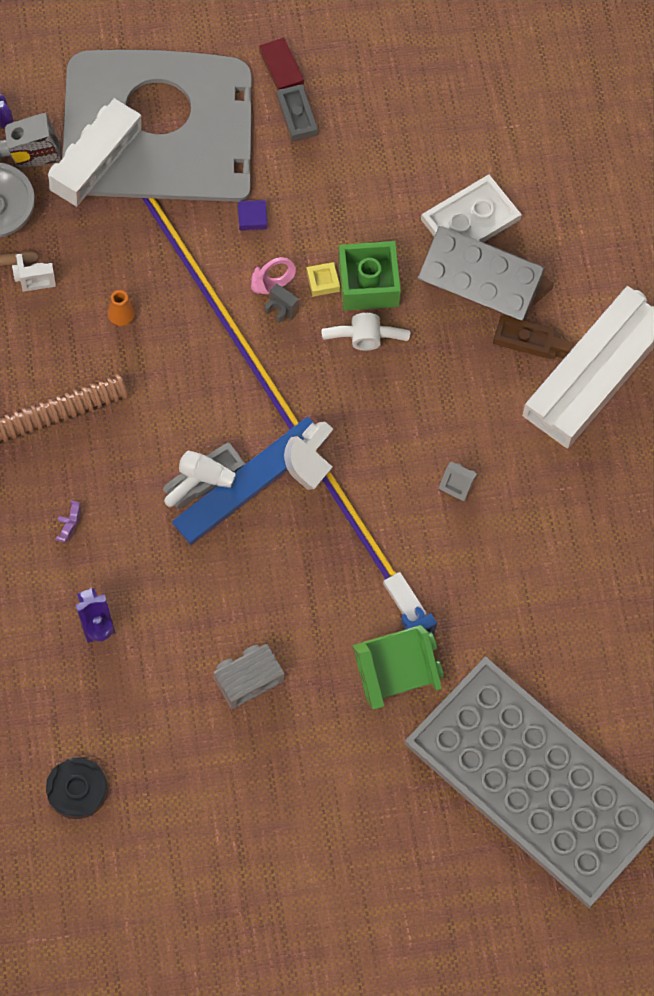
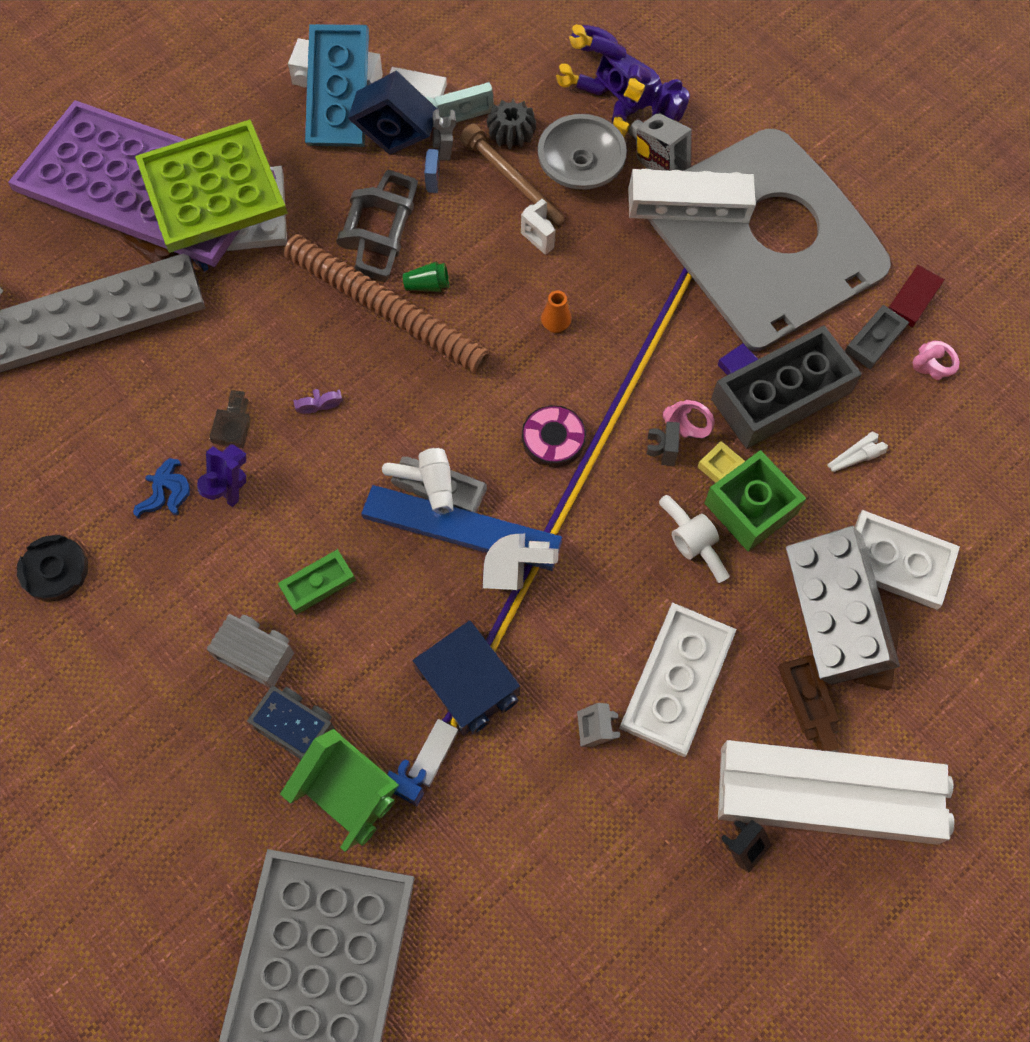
camera: 60 degrees right, 0 degrees up
(19, 379) = (430, 278): none -> green cone
(46, 593) = (232, 424): none -> clear smoke plate
(65, 663) = (165, 478): none -> blue piece
(219, 375) = (553, 436): none -> tile
(223, 603) = (316, 581): none -> bright green plate
(296, 197) = (785, 386): none -> dark grey brick
(324, 677) = (288, 721): none -> dark blue brick
(338, 94) = (927, 364): none -> bright pink piece
(369, 540) = (468, 678): none -> dark blue panel
(375, 186) = (861, 451): none -> white piece
(458, 410) = (678, 679): none -> white tile
(599, 439) = (748, 845): none -> black tile

